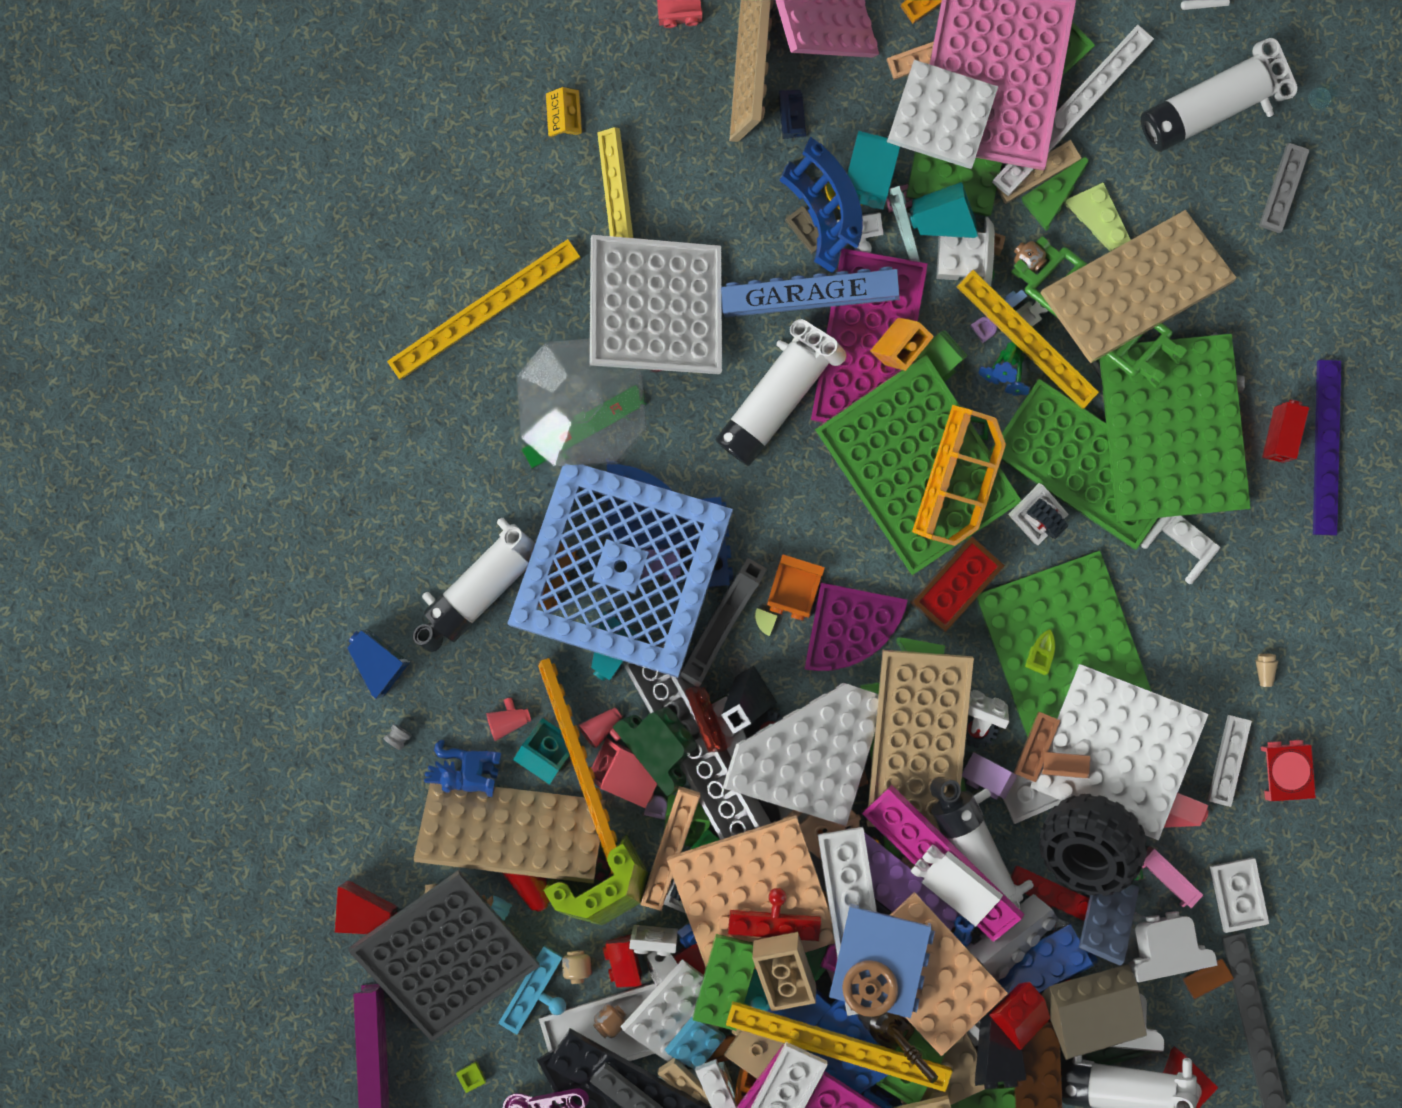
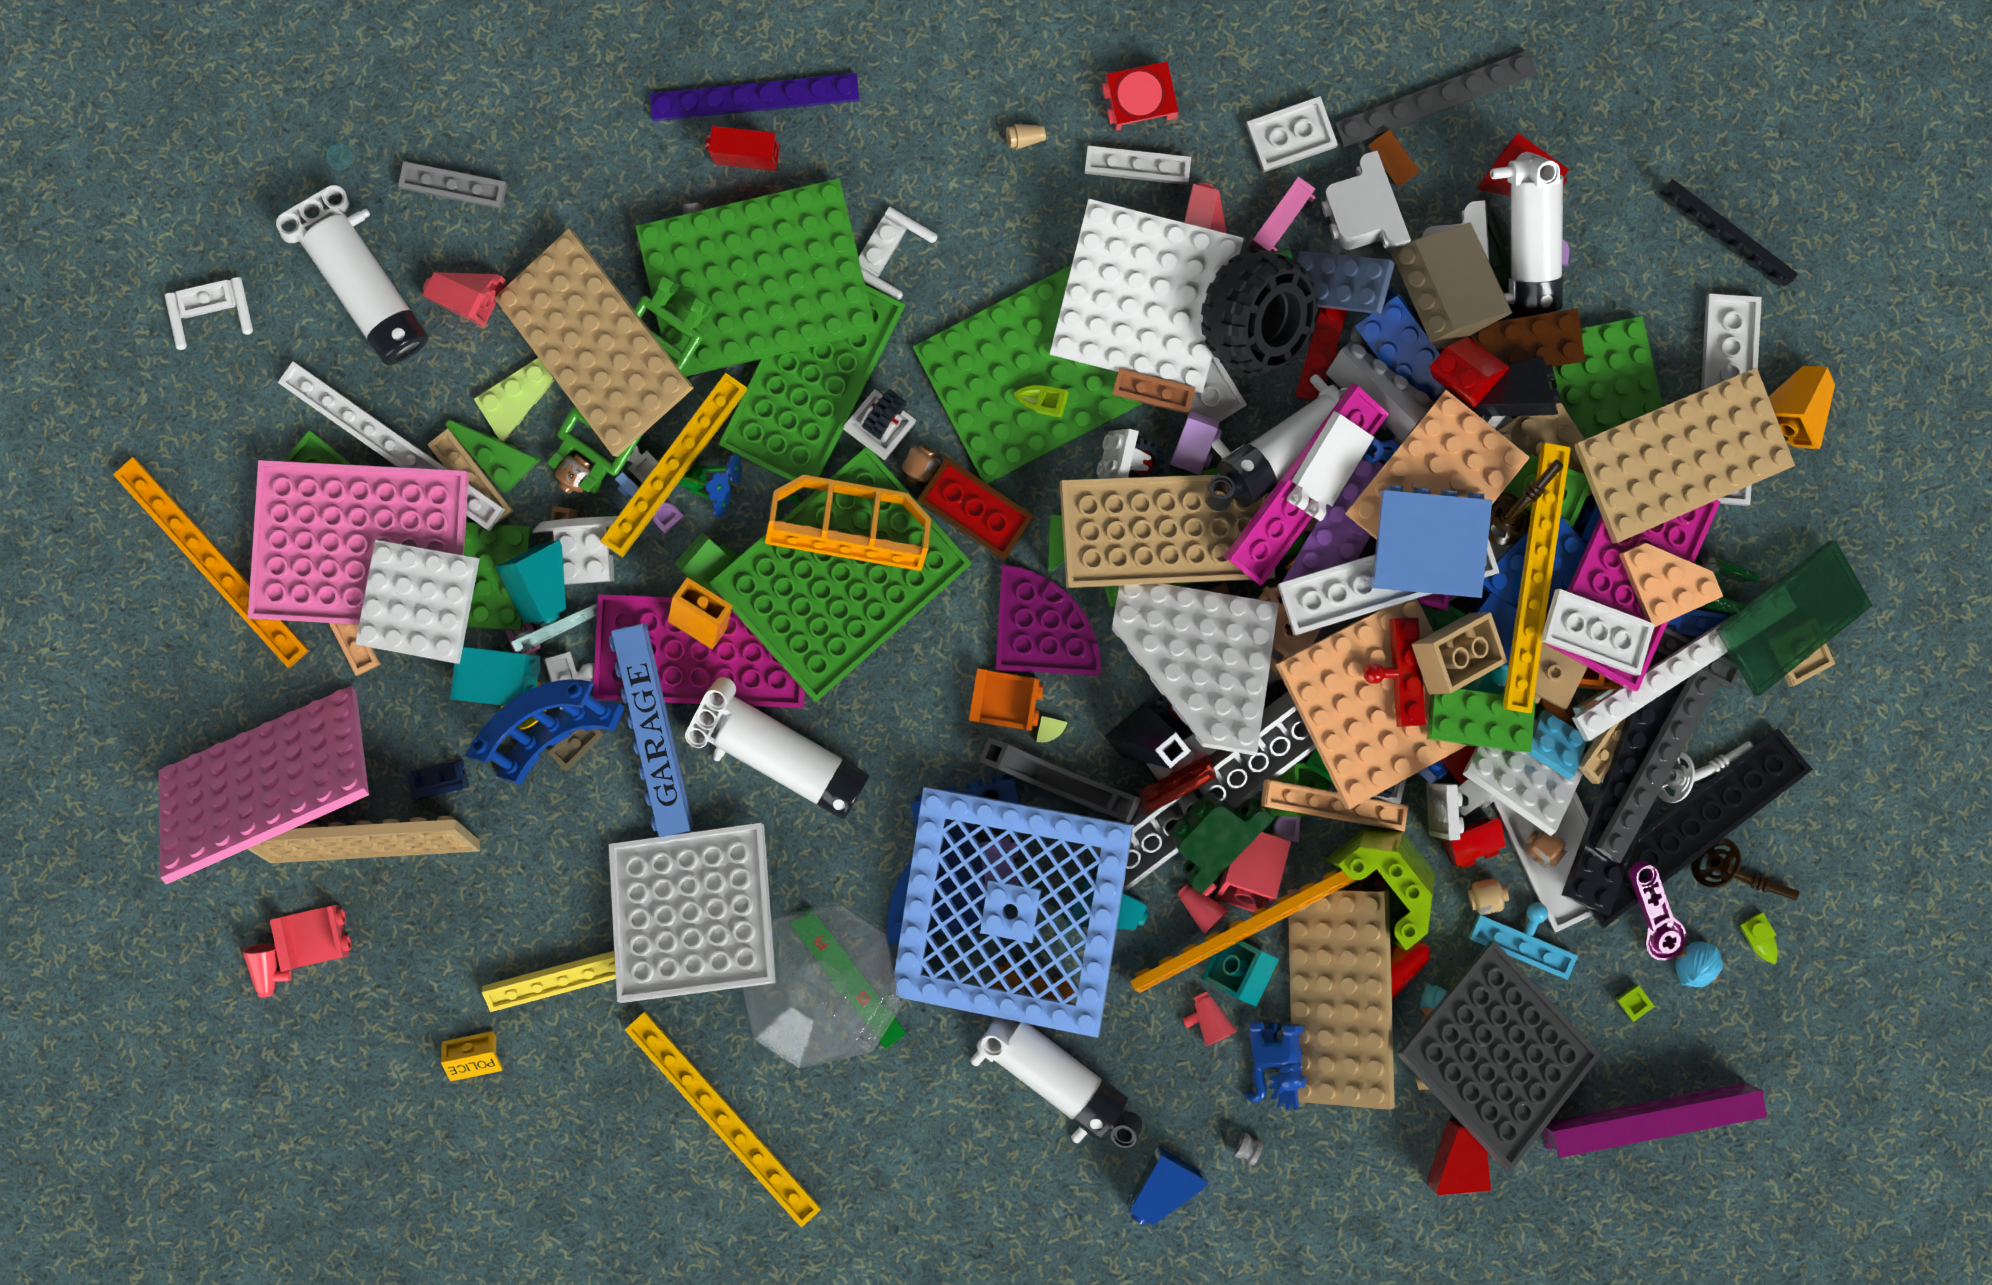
camera: 105 degrees left, 0 degrees up
(854, 1000) = (1442, 547): medium nougat plate -> none
(1000, 543) = (920, 464): none -> medium nougat head
(1066, 765) = (1171, 354): nougat panel -> none
(1191, 186) = (465, 293): none -> coral slope

